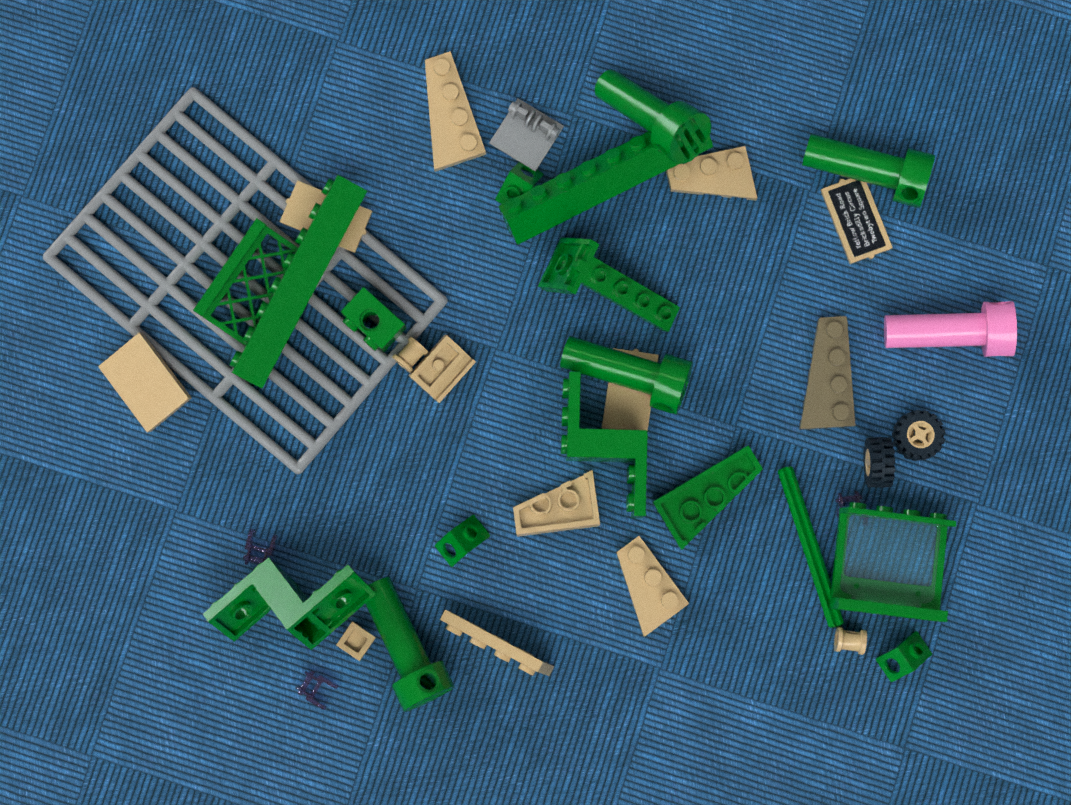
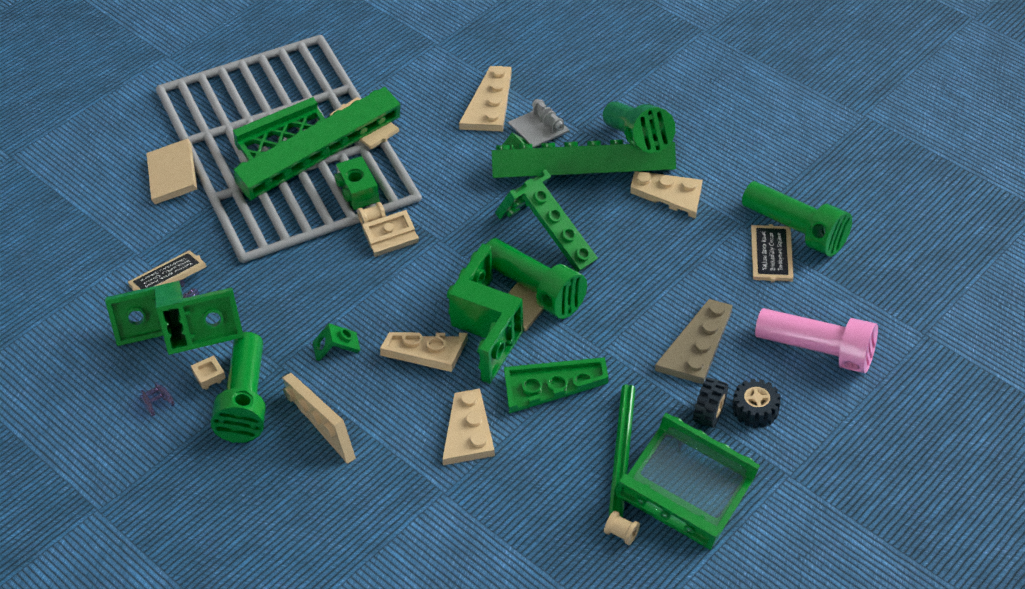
camera: 30 degrees right, 35 degrees down
(230, 529) = (170, 271): none -> piece
(908, 654) = (668, 555): green bracket -> none

